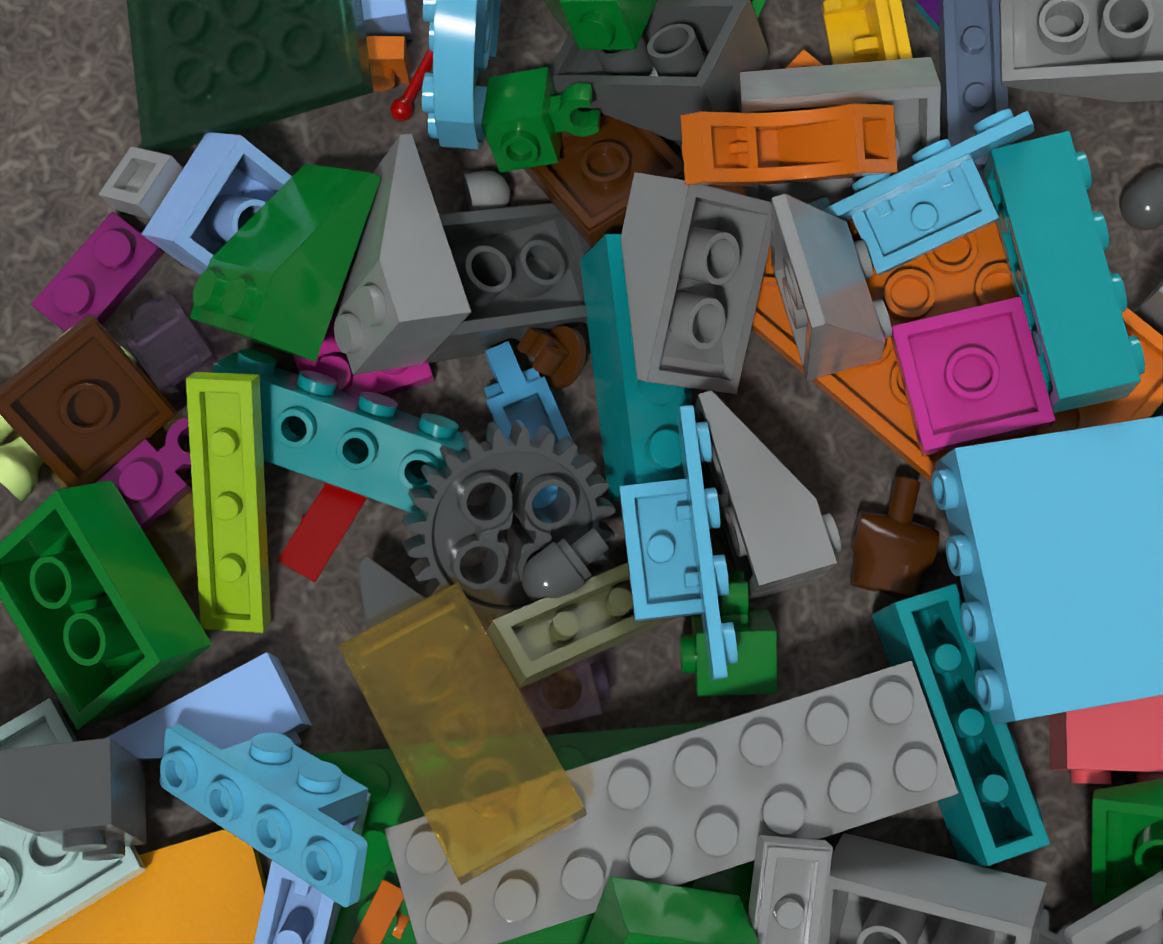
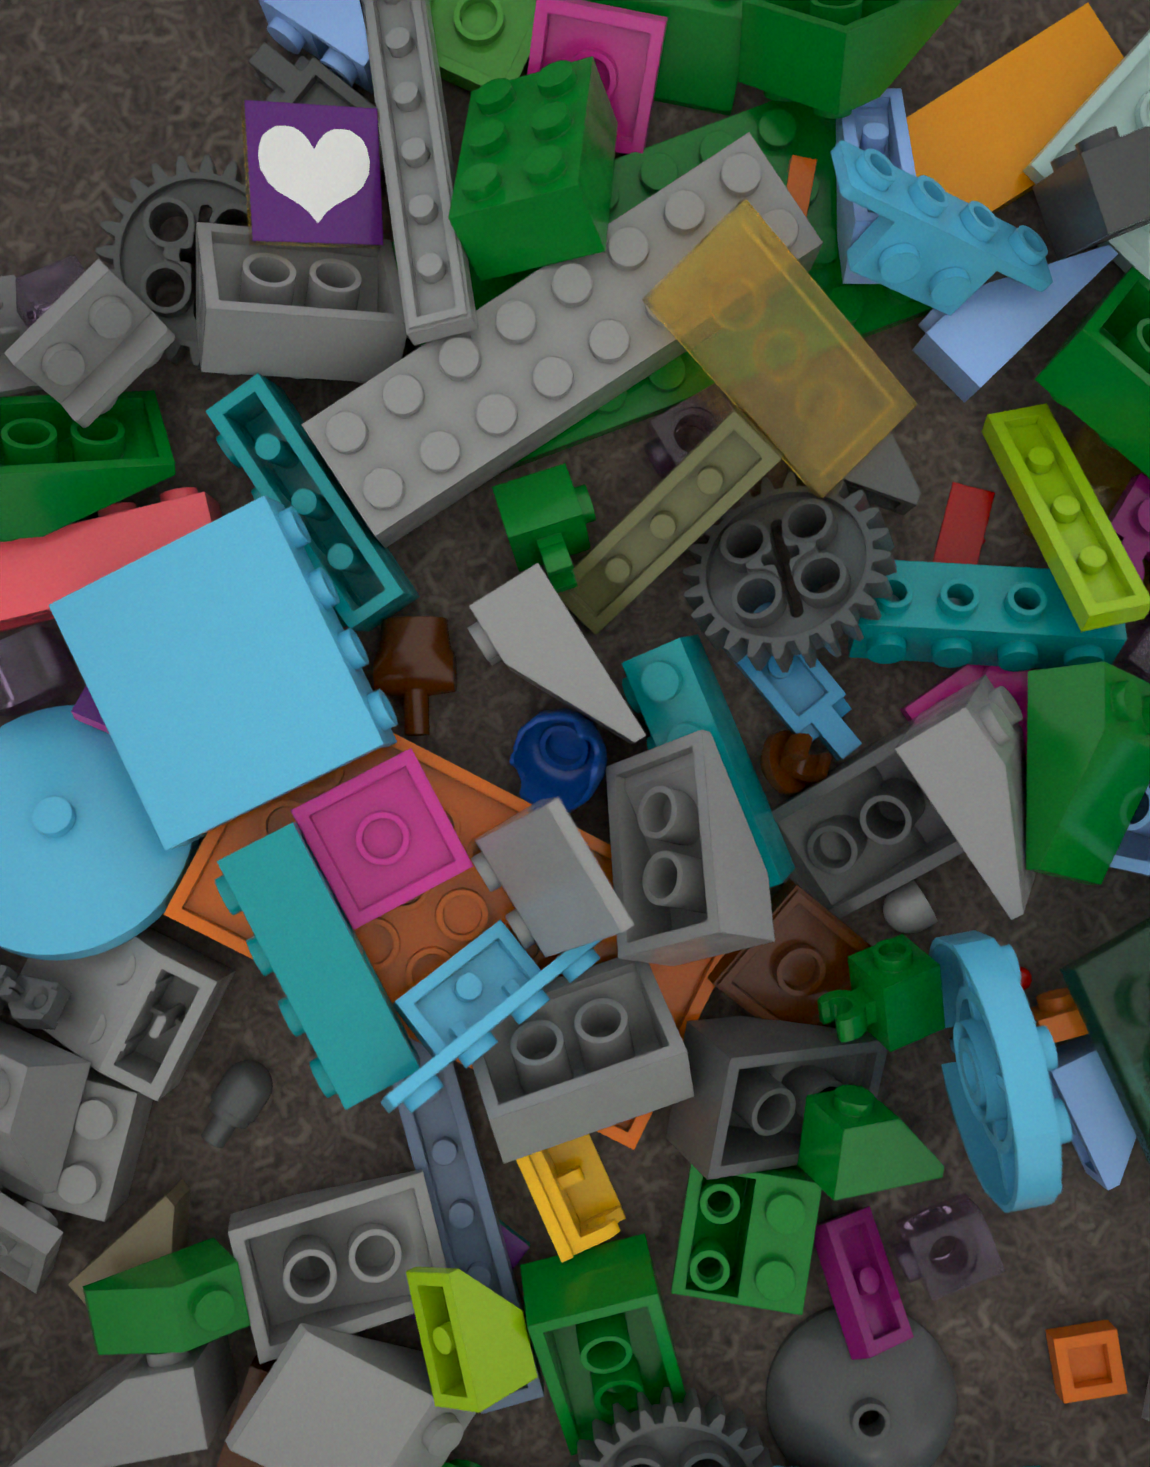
camera: 165 degrees right, 10 degrees up
(562, 567) = (727, 539): dark grey cylinder -> none
(672, 549) = (631, 582): medium azure bracket -> none
(781, 409) = (559, 757): none -> blue hair
(788, 146) = (630, 1006): orange arch -> none

